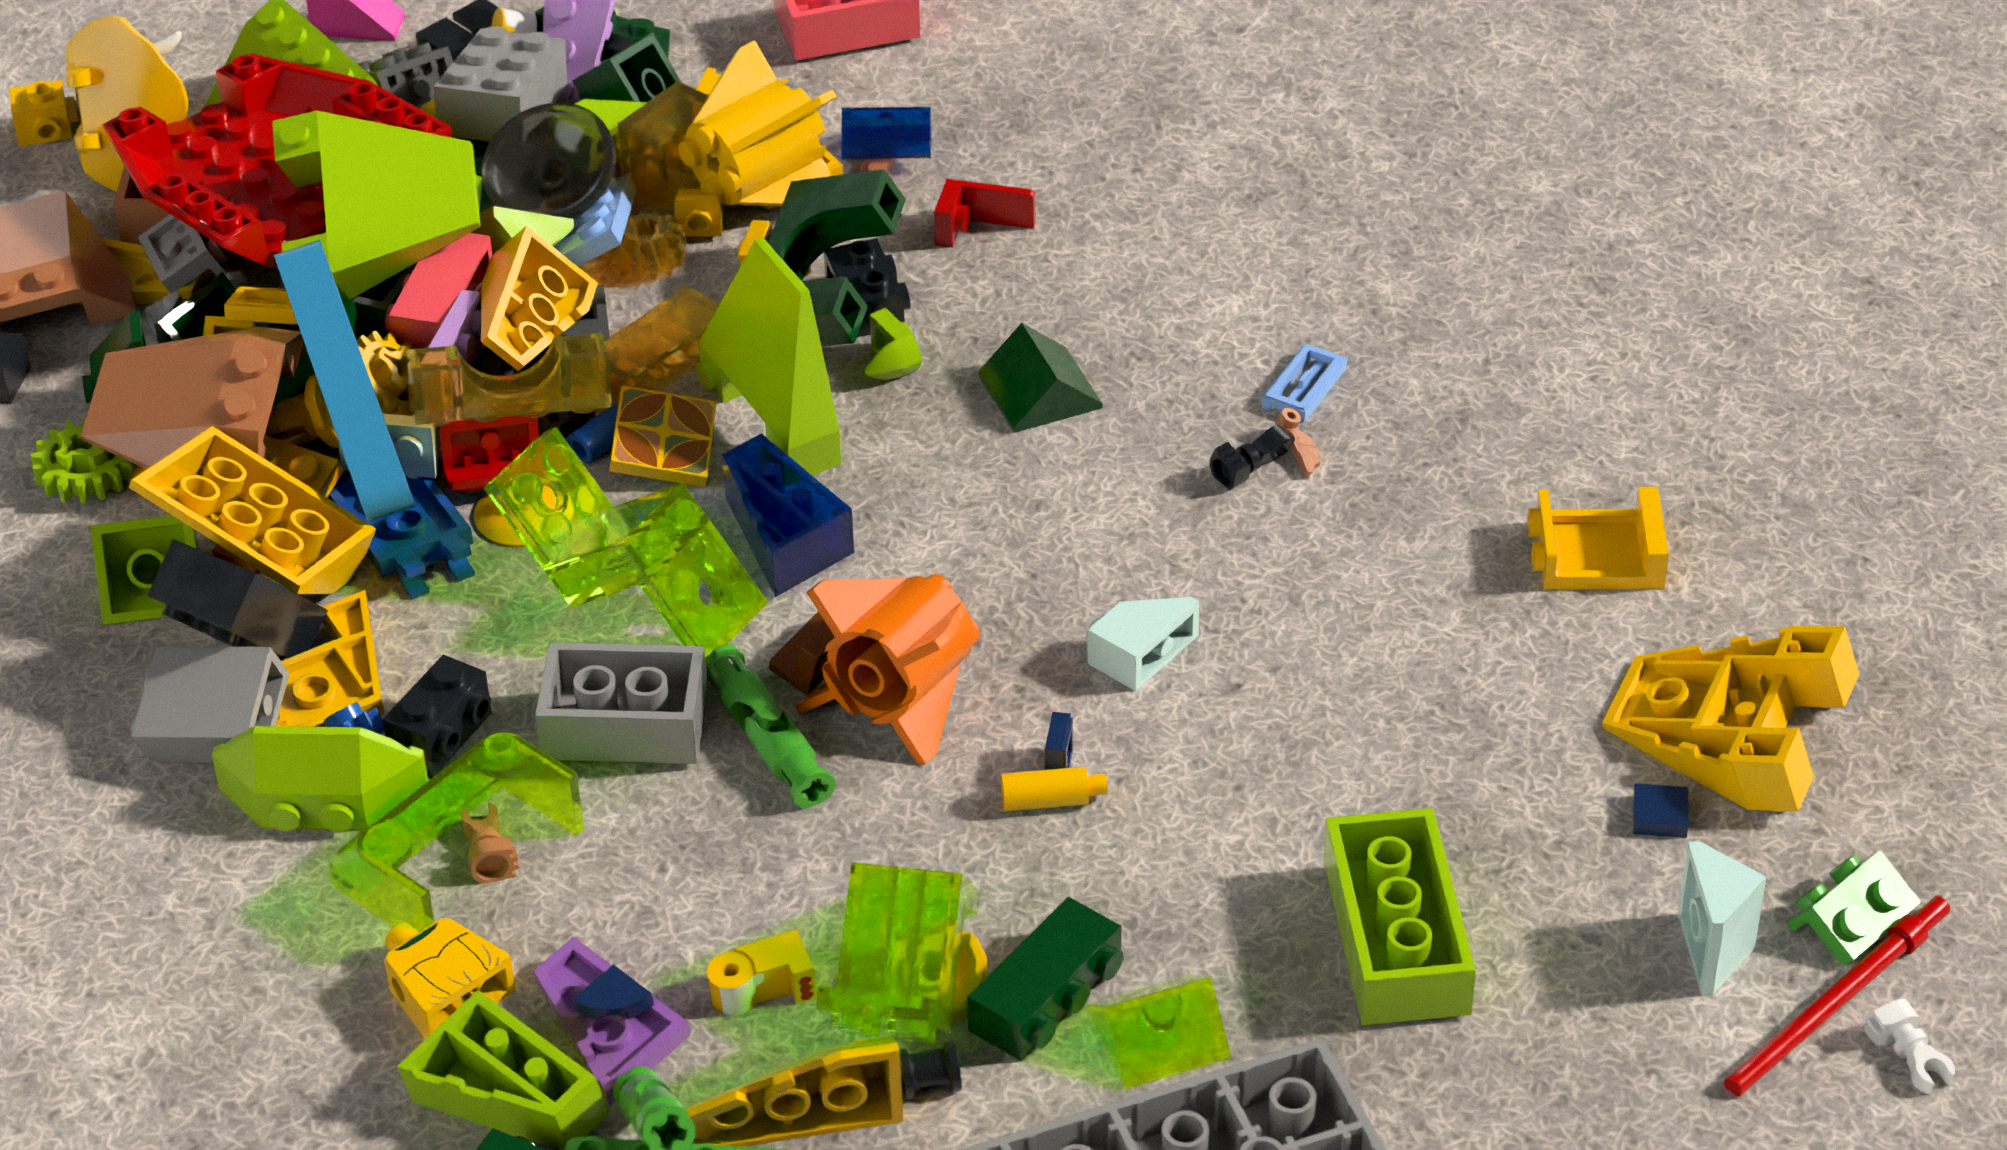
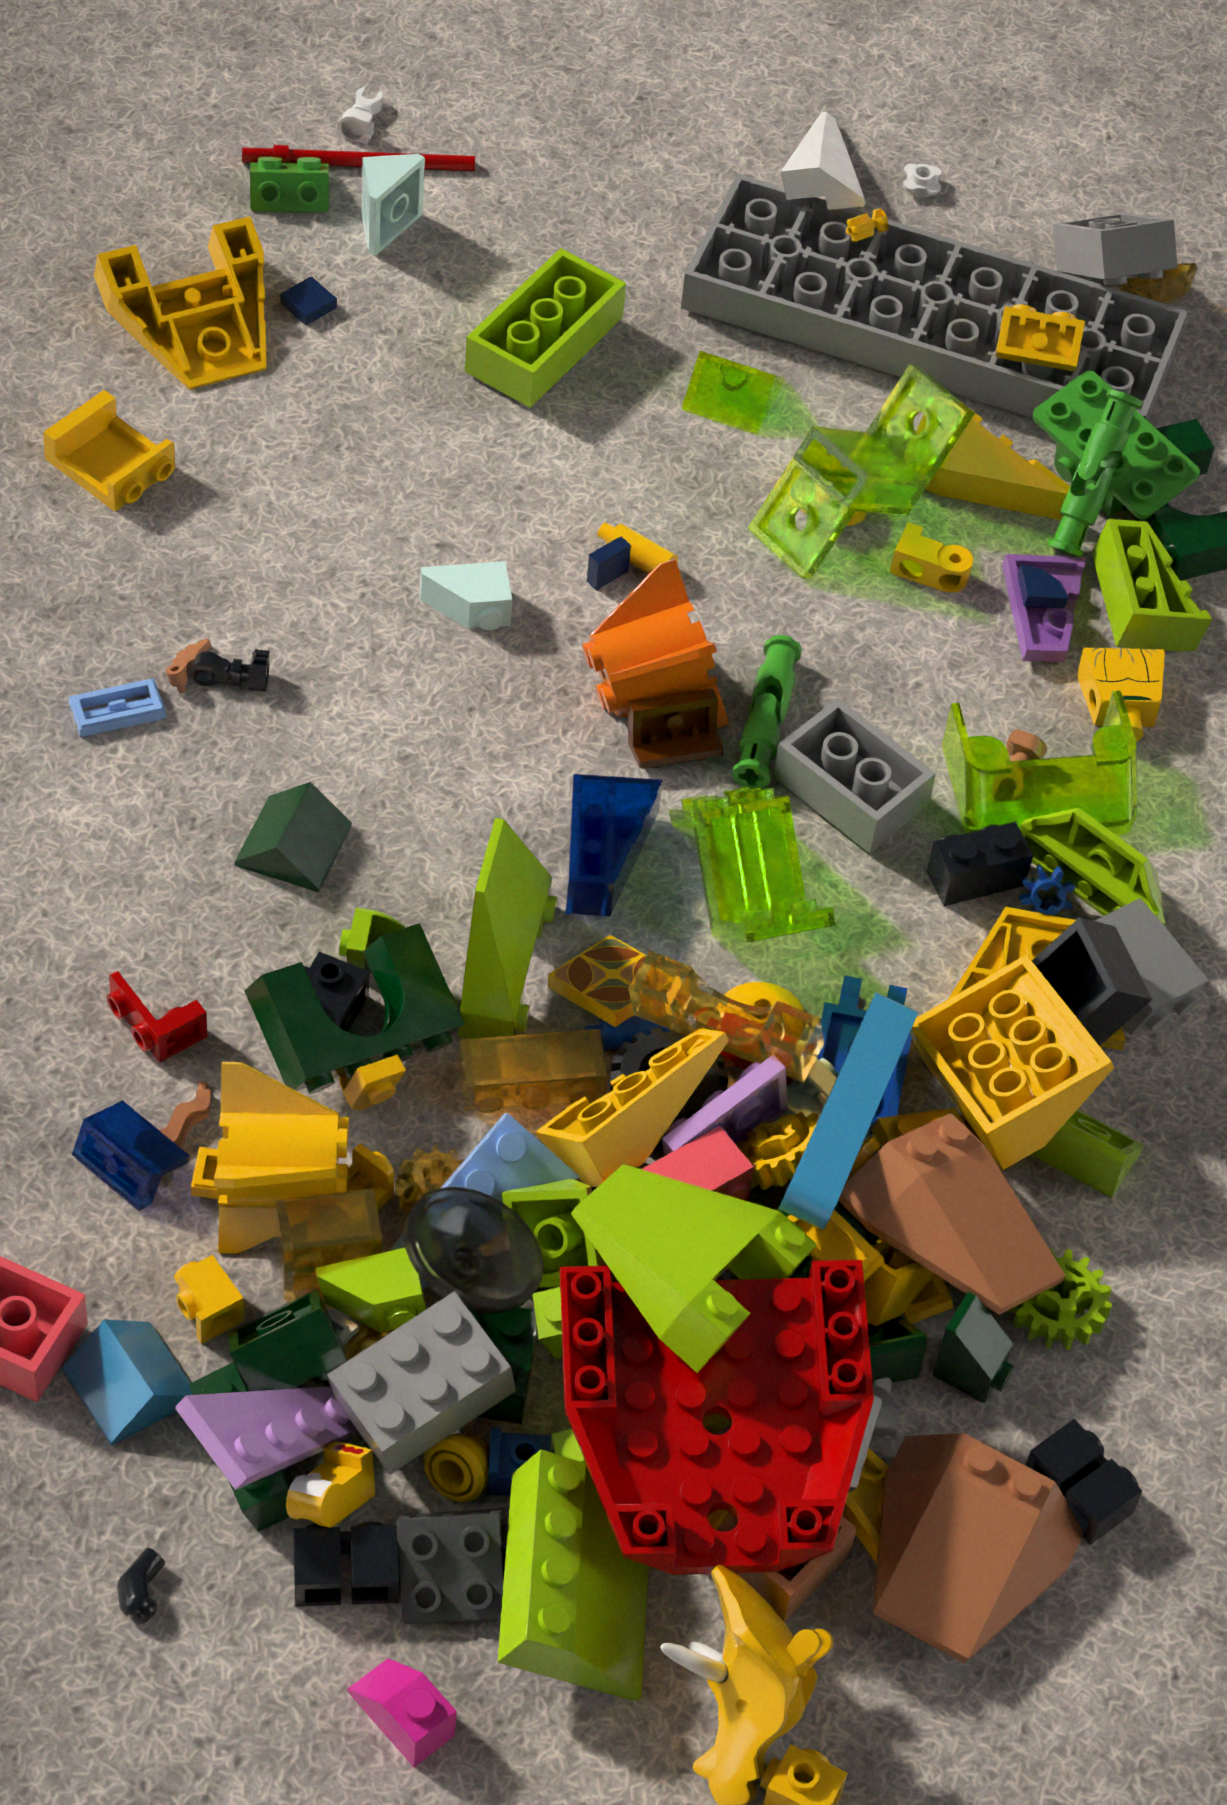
camera: 145 degrees left, 10 degrees up
(714, 41) = (126, 1377): none -> dark azure slope
(1045, 979) = (760, 442): dark green brick -> none

